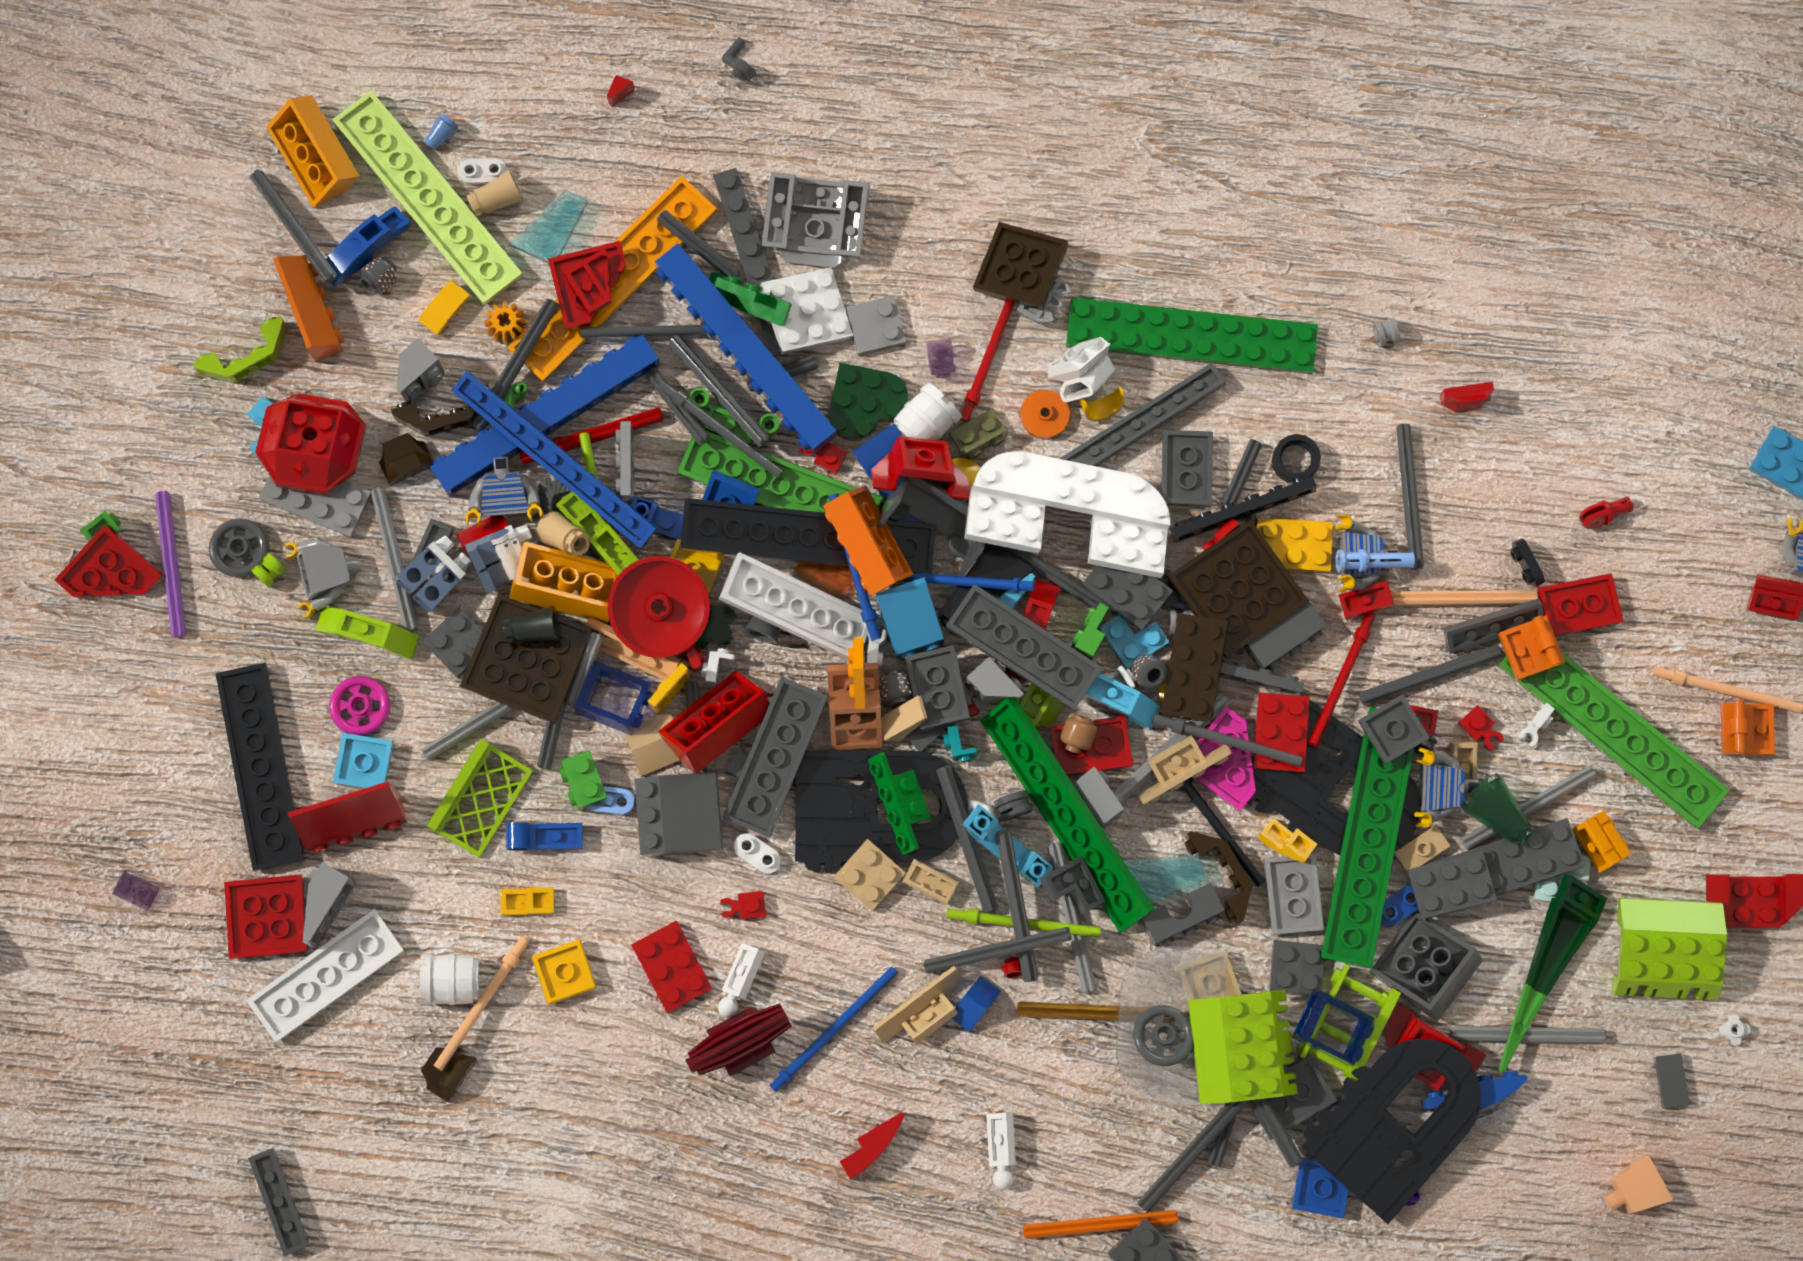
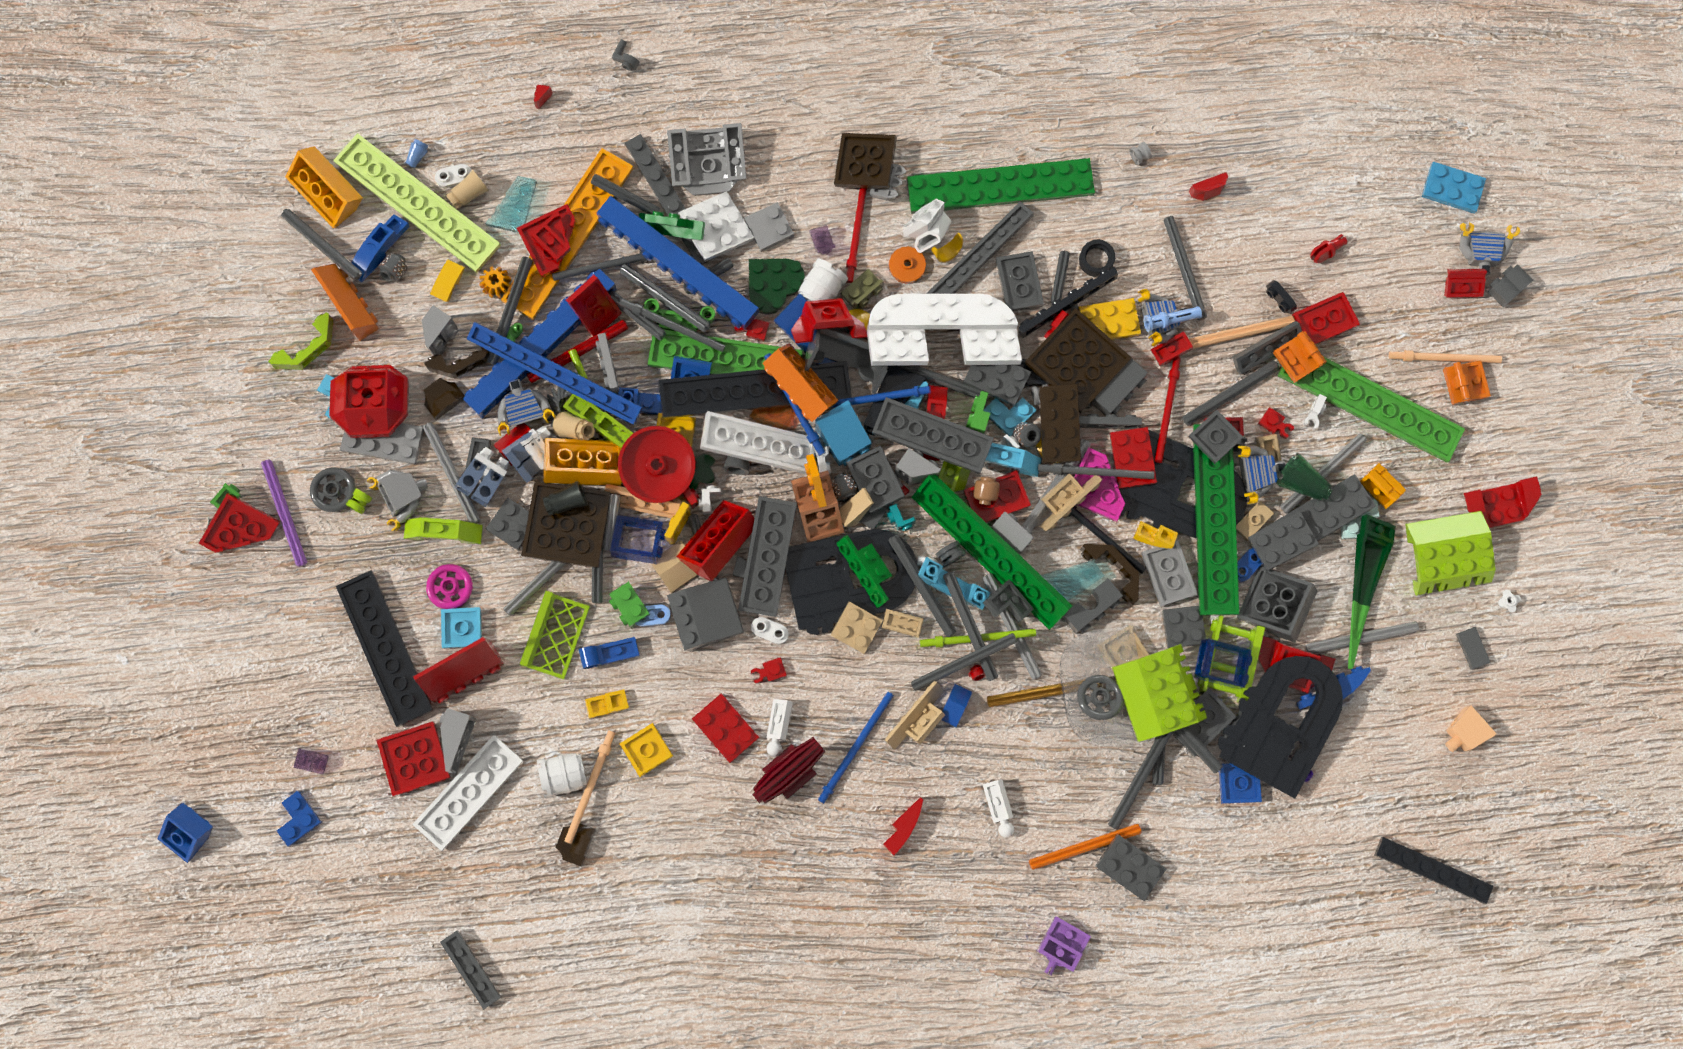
camera: 15 degrees left, 0 degrees up
(110, 961) = (303, 819): none -> blue plate
(624, 382) = (594, 306): none -> red plate

